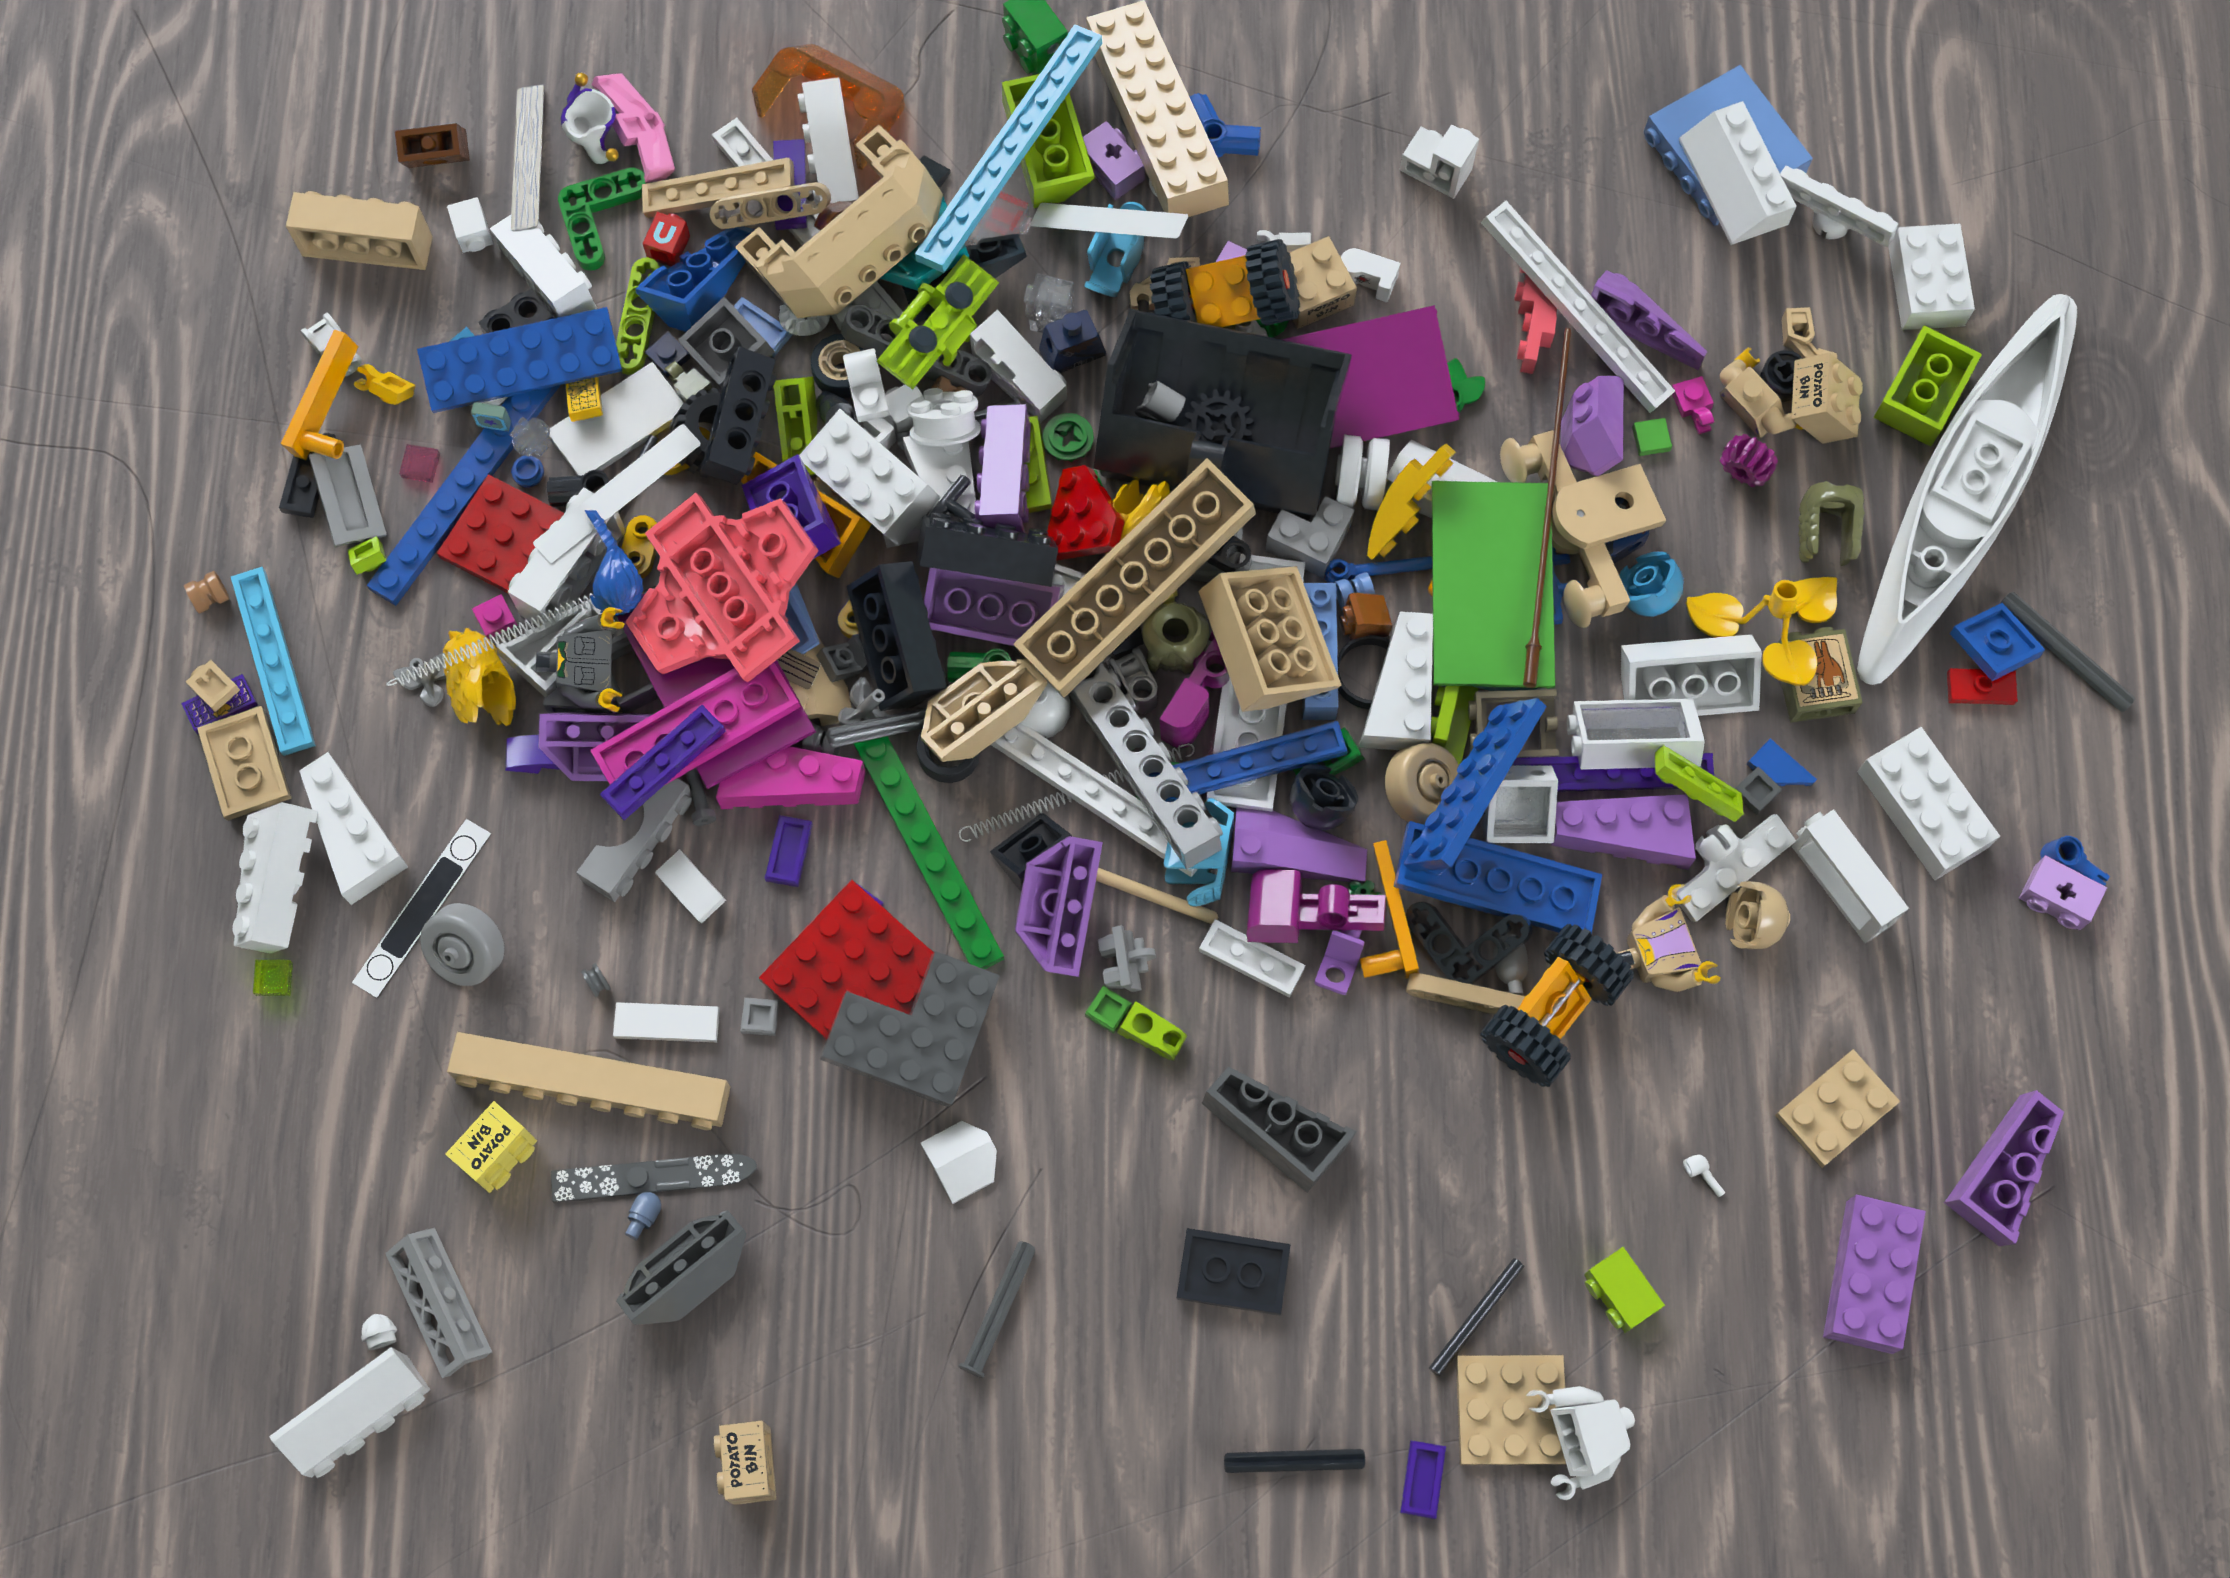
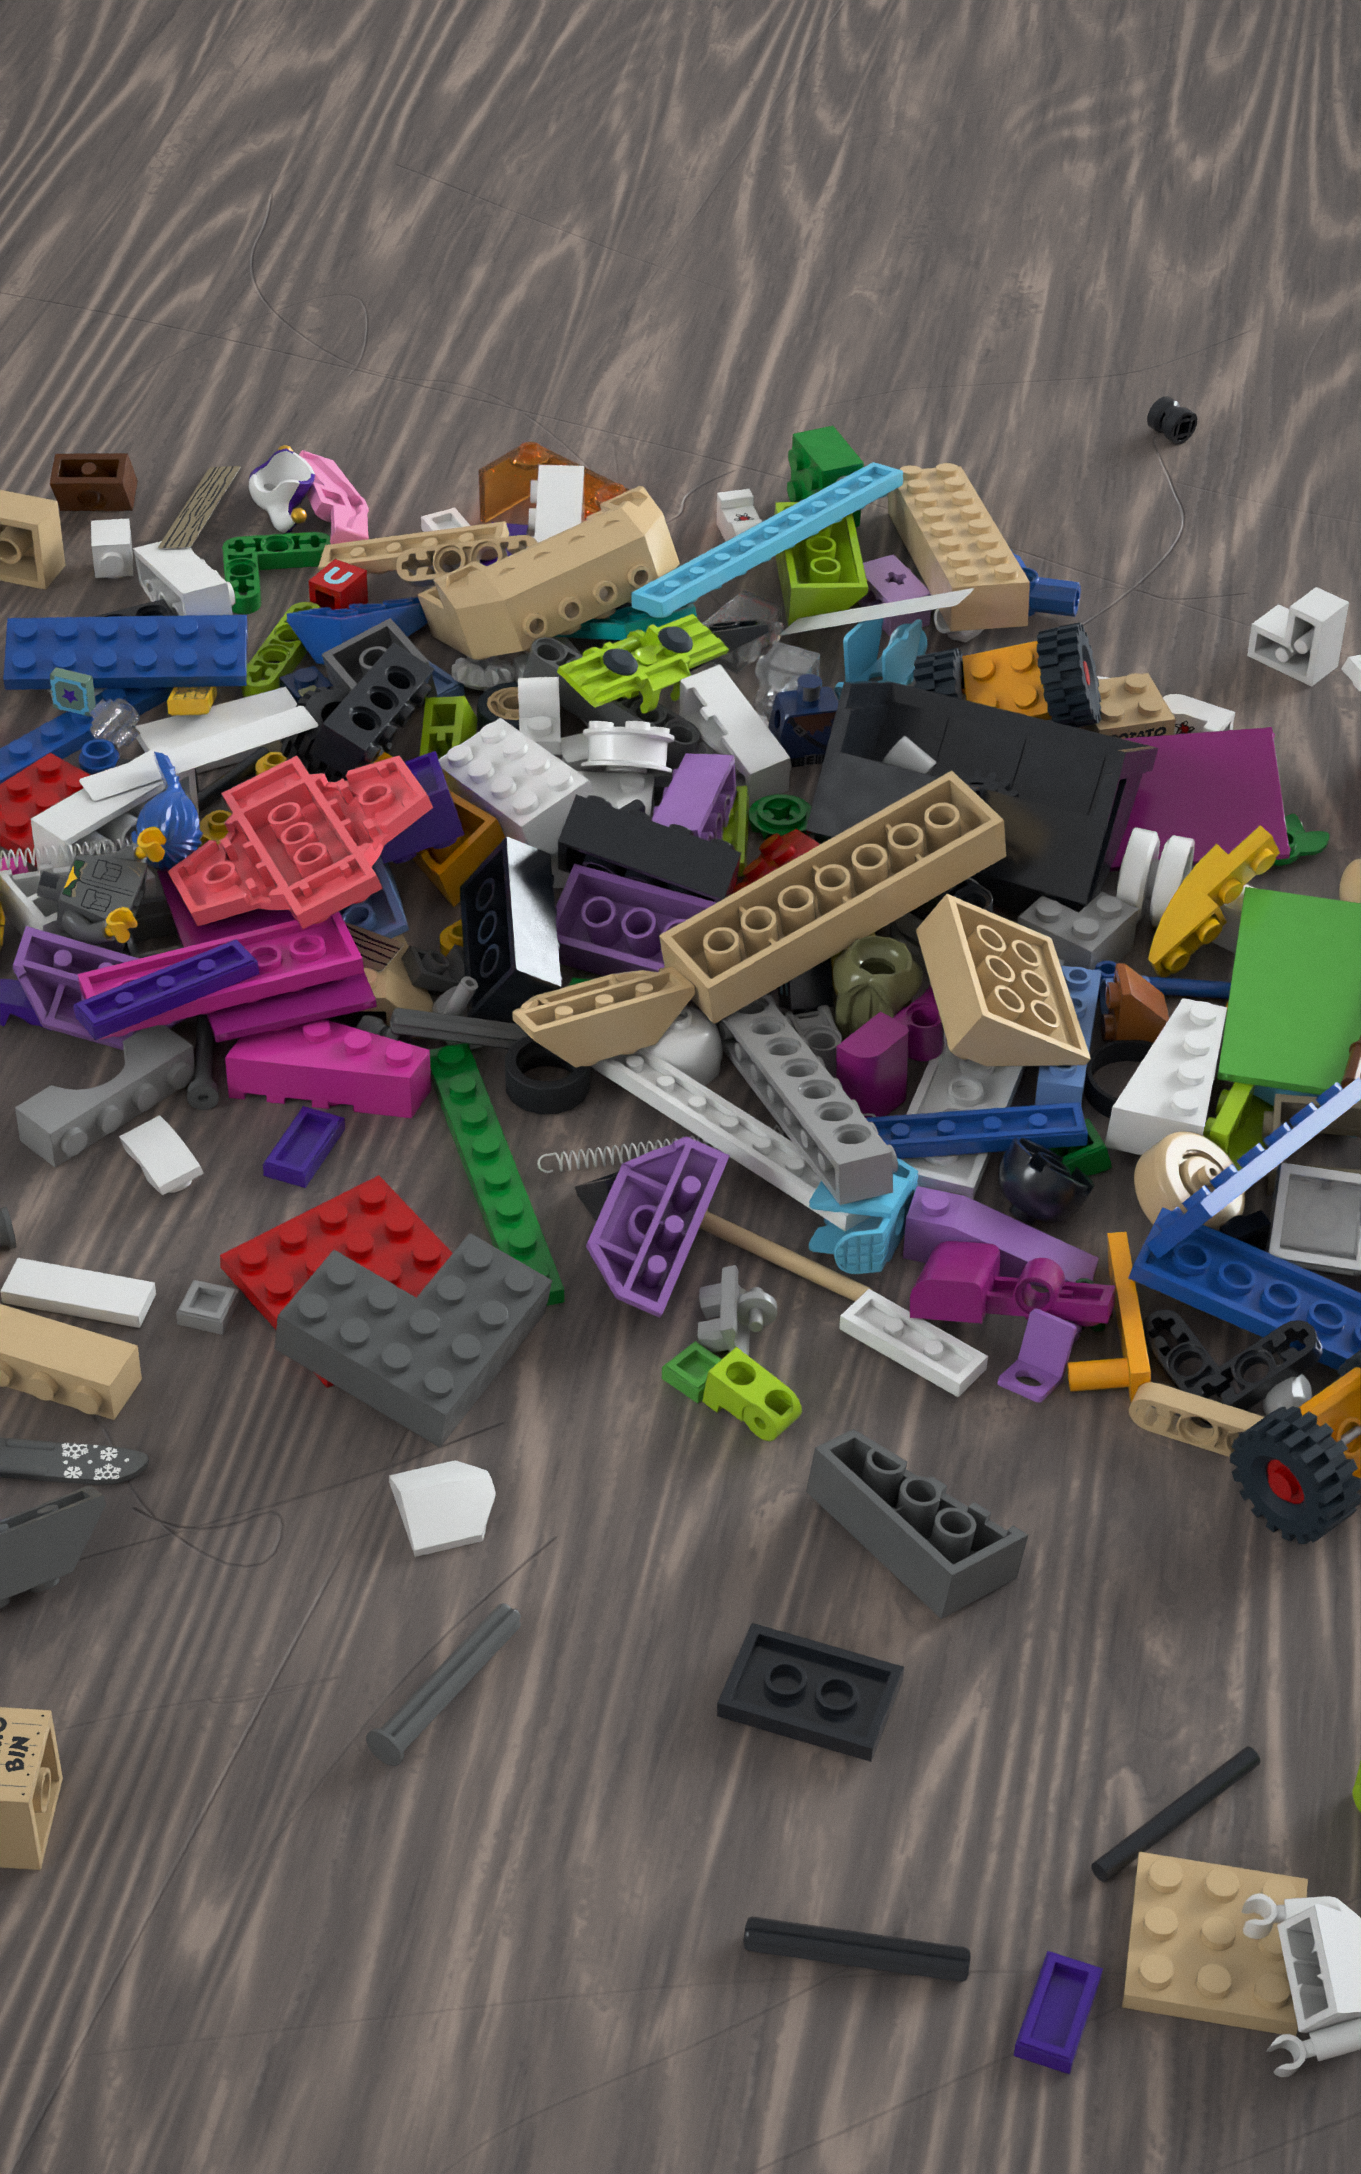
camera: 10 degrees right, 30 degrees down
(973, 91) = (735, 513): none -> white leg

